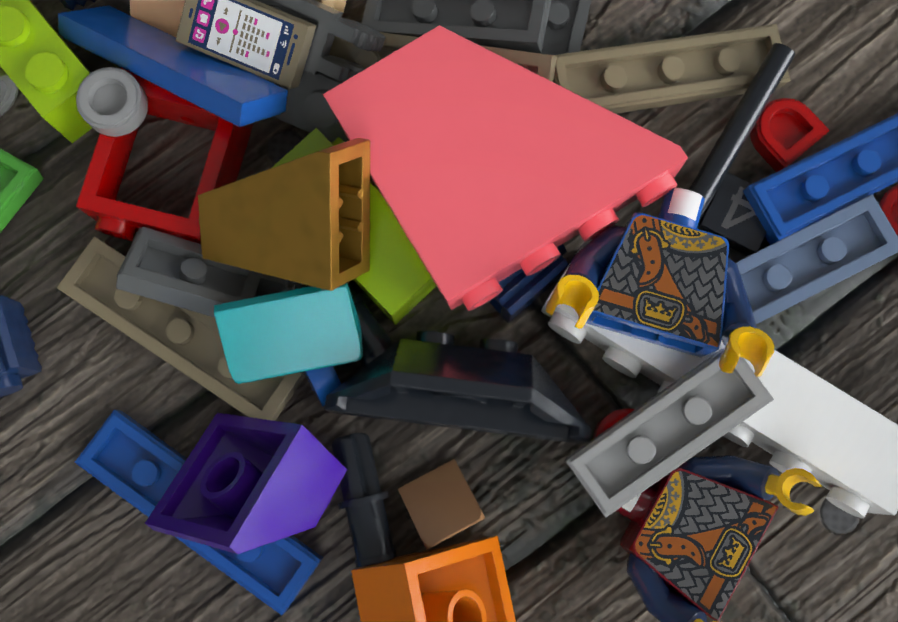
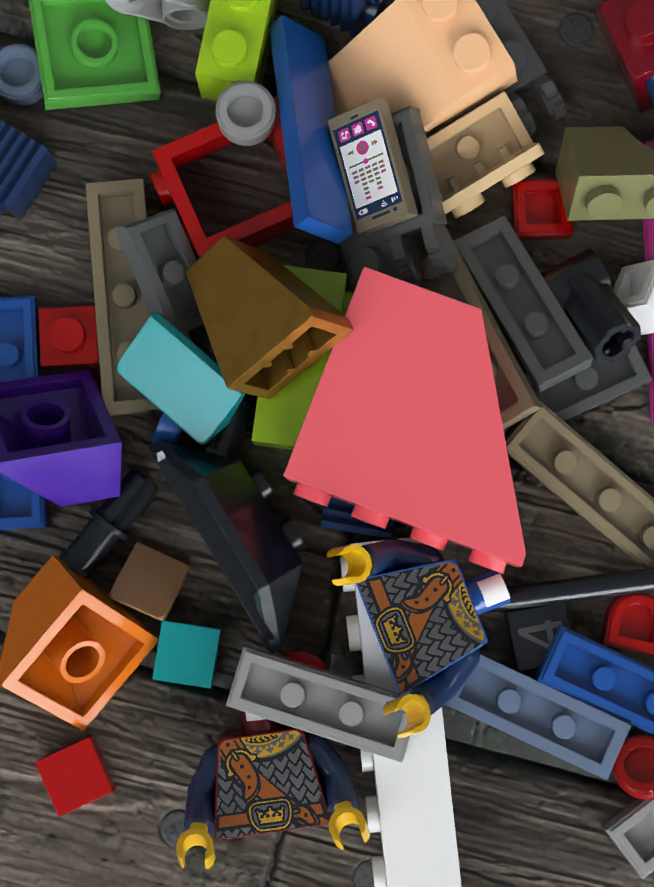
camera: 50 degrees right, 5 degrees up
(176, 408) = (68, 337): none -> red plate
(529, 521) = (187, 653): none -> teal tile

